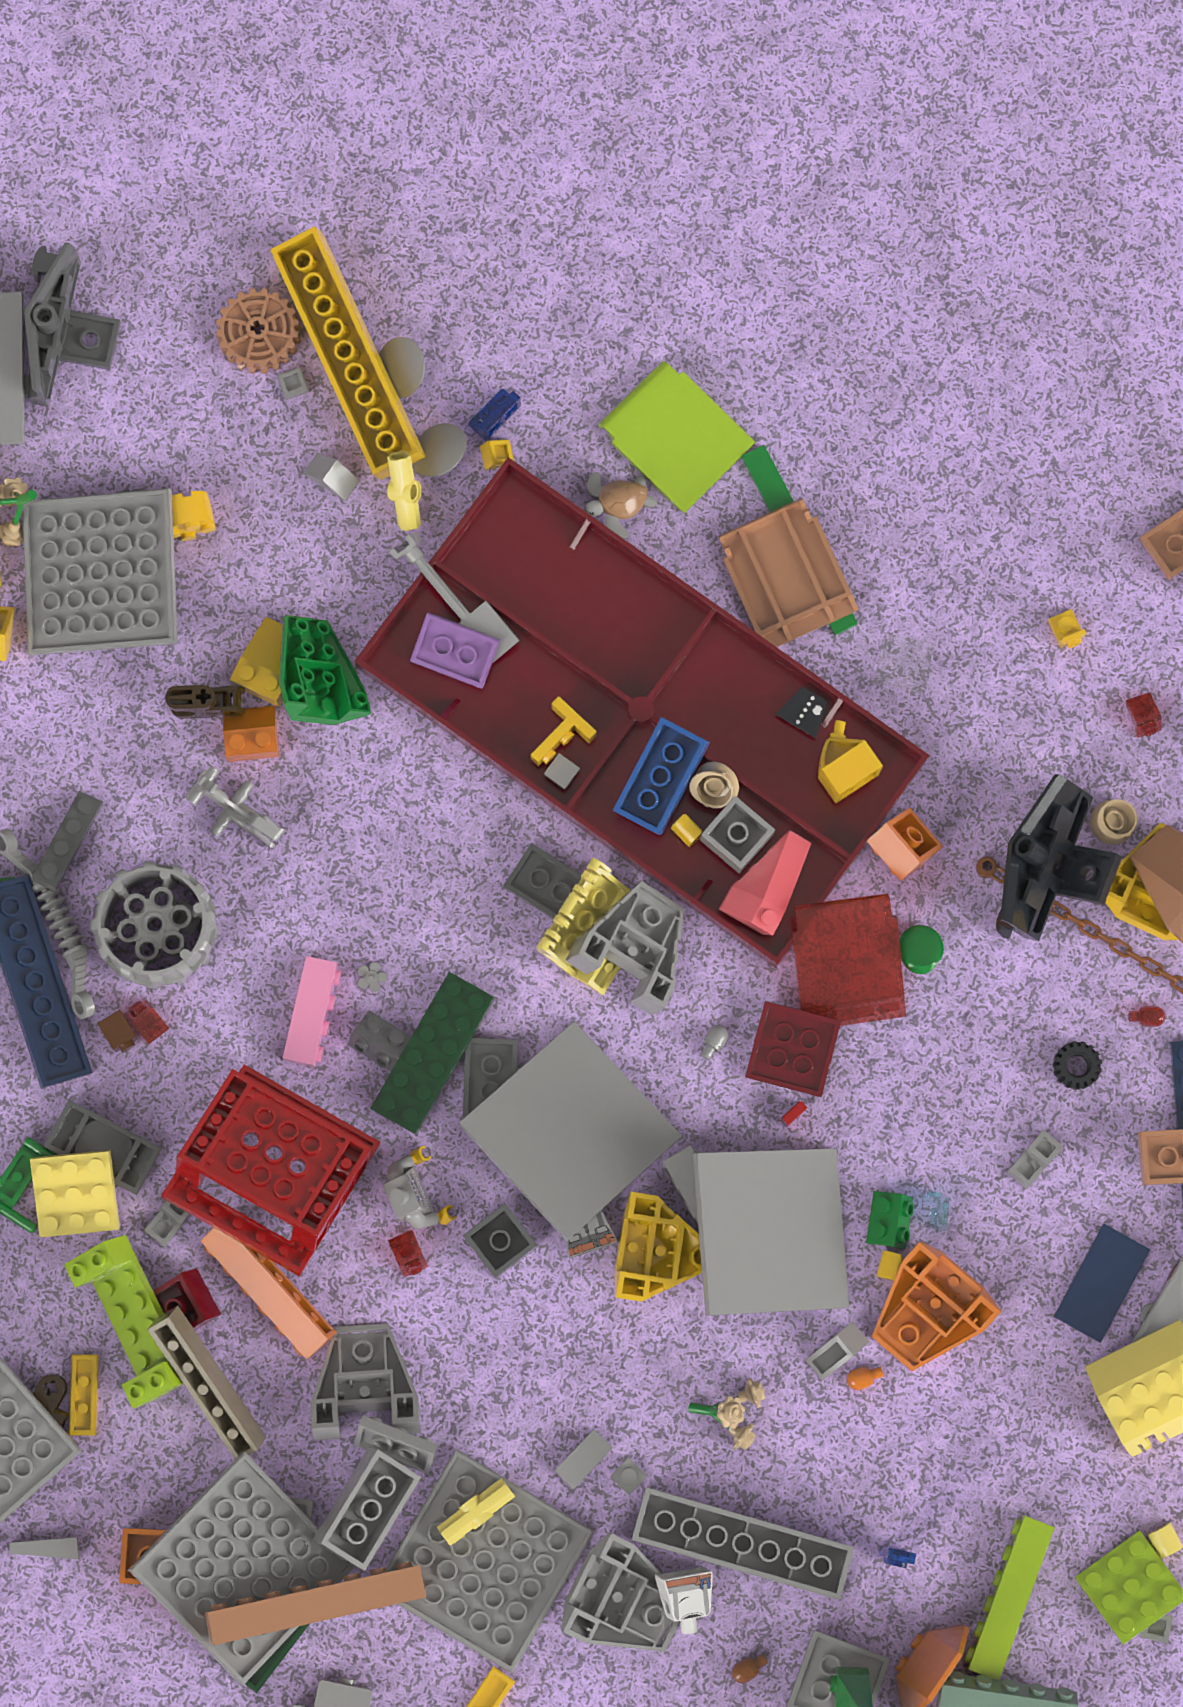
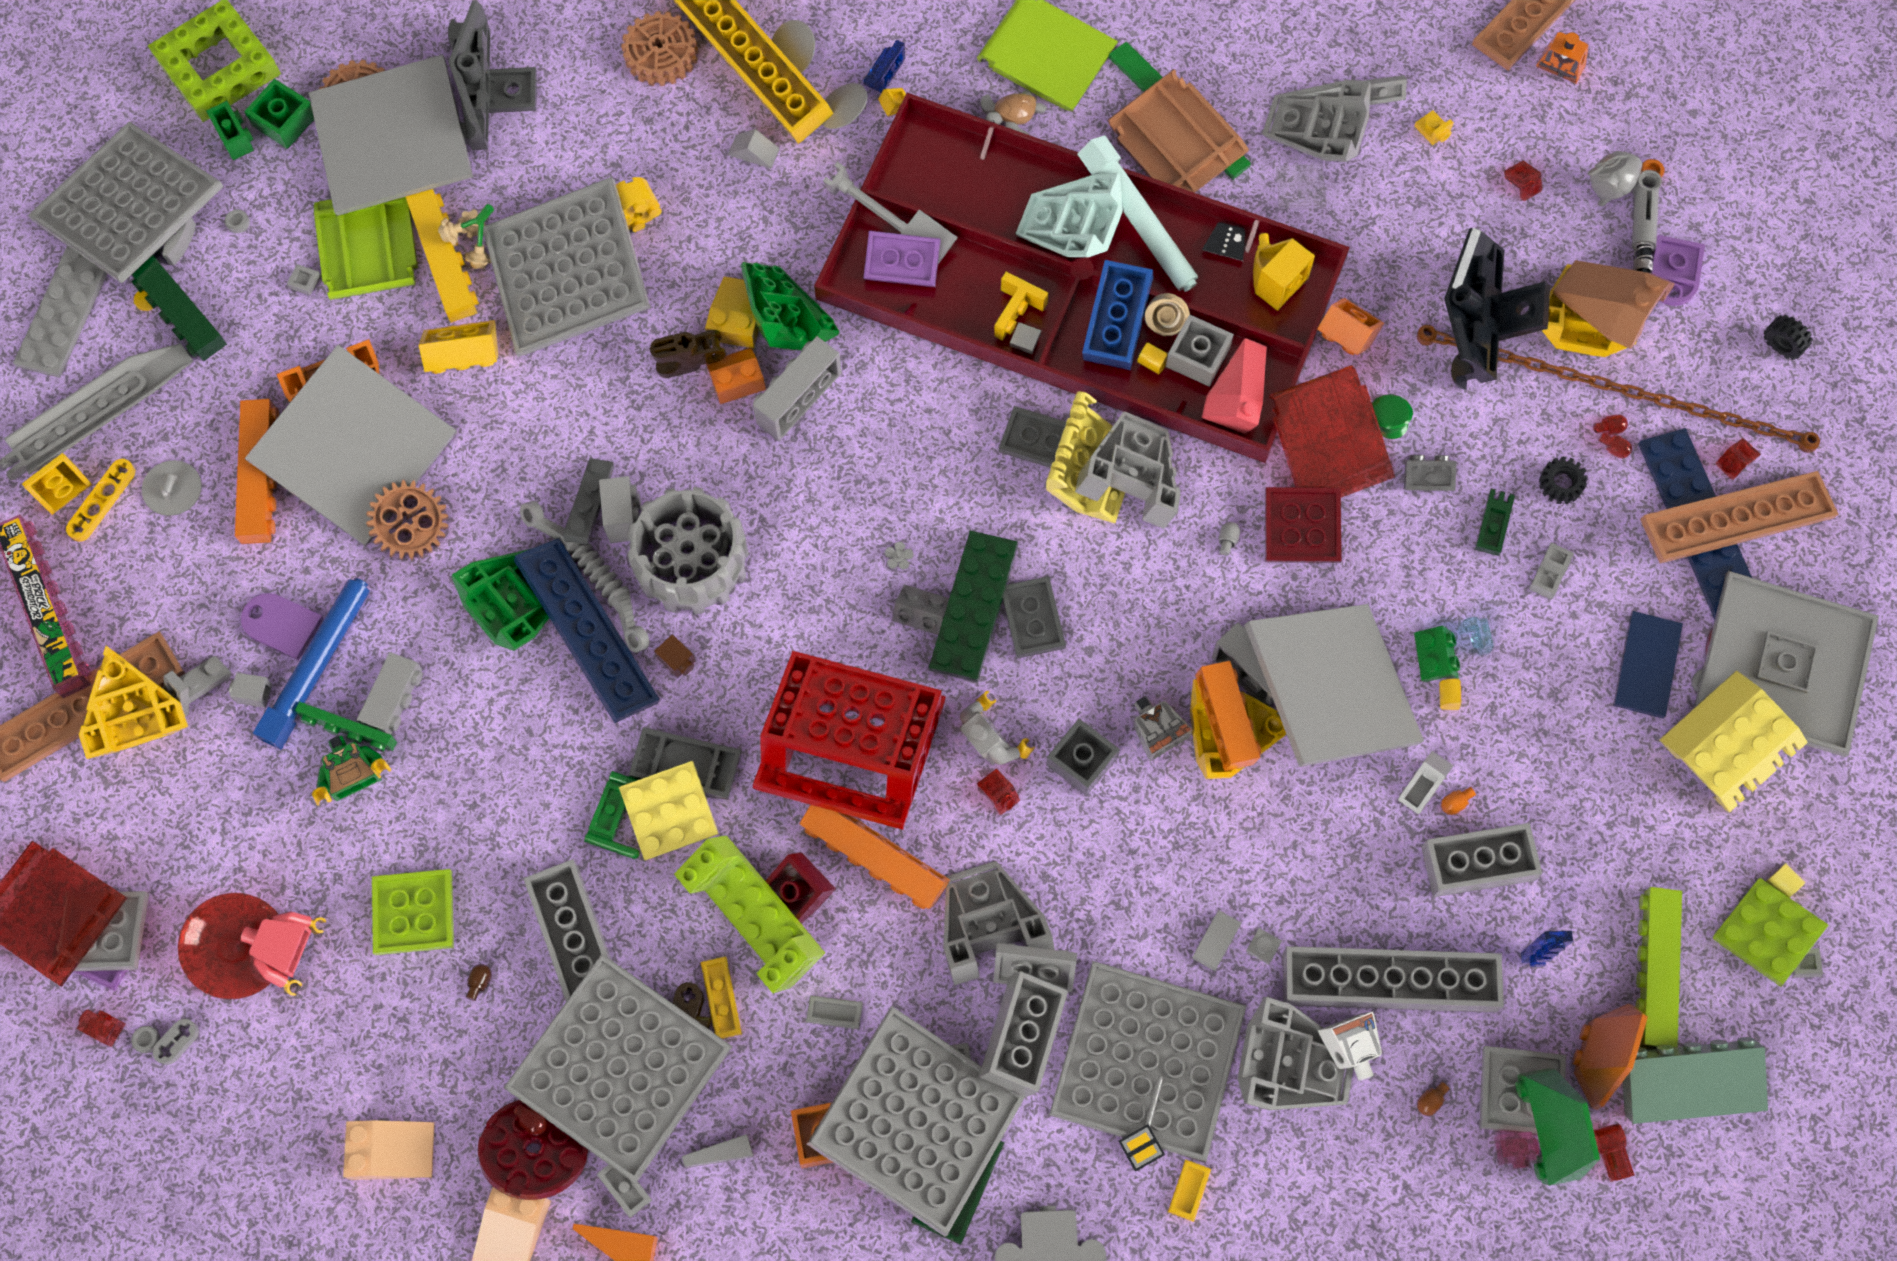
camera: 10 degrees left, 10 degrees down
(96, 860) = (619, 507): none -> light grey brick
(146, 1021) = (700, 641): clear red bracket -> none
(166, 1224) = (764, 816): light grey slope -> none
(190, 1436) = (834, 1012): none -> light grey tile
(206, 1382) = (838, 951): dark tan brick -> none
(234, 809) = (738, 439): light grey piece -> none
(293, 383) = (701, 84): light grey tile -> none
(309, 770) = (797, 388): none -> light grey brick
(311, 1011) = (850, 597): bright pink brick -> none
(315, 1604) = (998, 1136): nougat brick -> none
(404, 490) = (821, 138): light yellow piece -> none
(454, 1642) = (1141, 1145): none -> piece
(475, 1511) = (1129, 1012): light yellow piece -> none
(570, 1130) = (1120, 643): light grey tile -> none
(646, 651) = (1074, 216): none -> light aqua wedge
(653, 1240) = (1228, 716): none -> orange brick
(692, 596) = (1102, 158): none -> light aqua brick
(731, 1412) = (1348, 856): tan plant -> none
(793, 1113) = (1320, 581): red tile -> none
(866, 1446) = (1481, 860): none -> light grey brick
(932, 1308) = (1501, 722): orange wedge -> none
(941, 1023) = (1430, 474): none -> flat silver bracket
(946, 595) = (1322, 119): none -> light grey wedge
(992, 1093) = (1494, 523): none -> dark green hinge
(1021, 573) = (1387, 89): none -> light grey hinge
(1113, 821) = (1526, 269): tan piece -> none
(1145, 1040) = (1616, 445): none -> clear red cylinder

